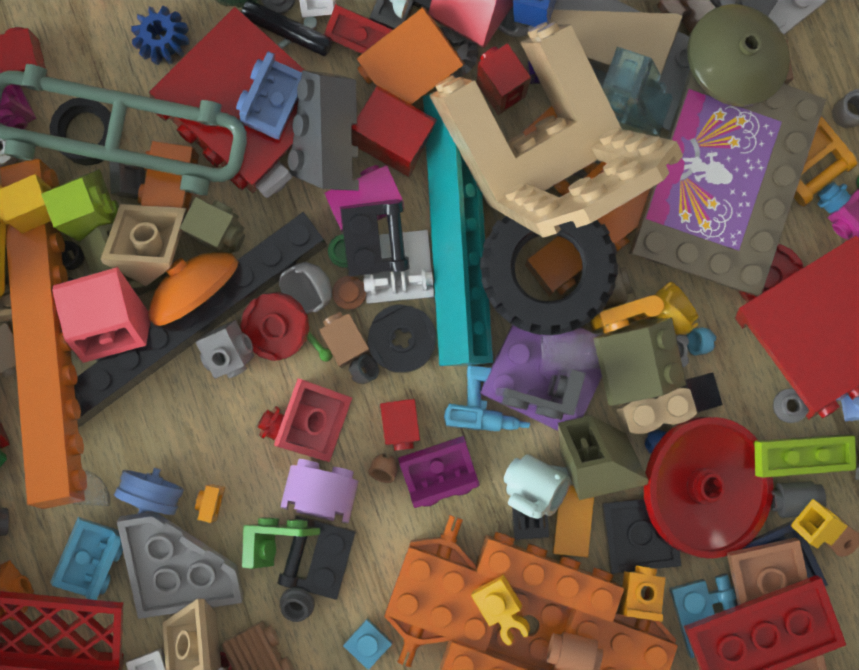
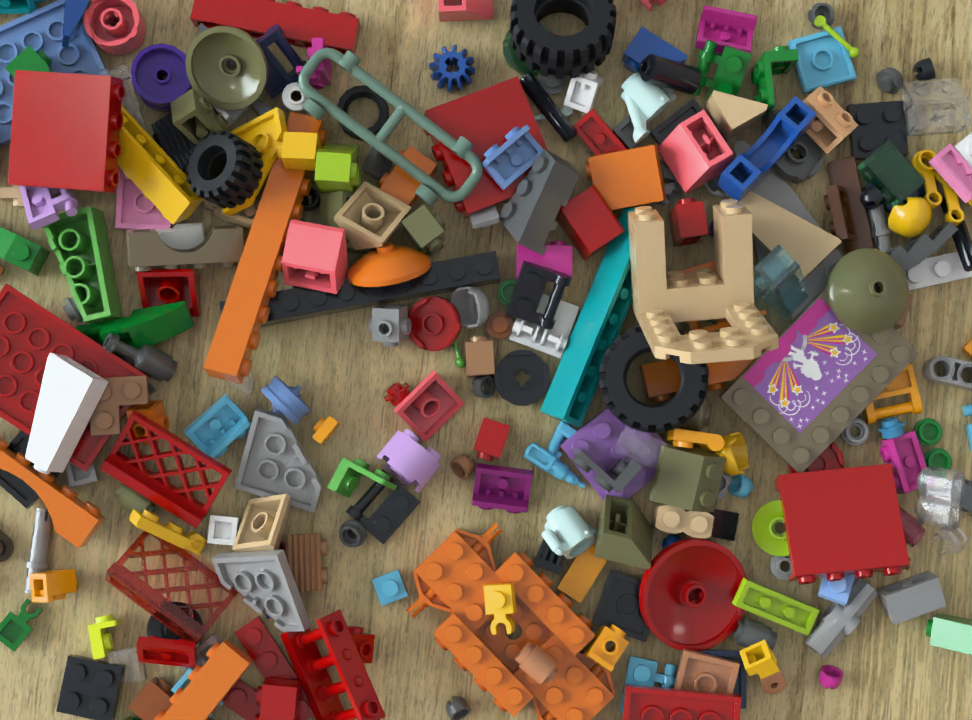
camera: 20 degrees right, 0 degrees up
(750, 378) = (764, 529): none -> lime dish
(804, 218) = (863, 432): none -> light grey plate

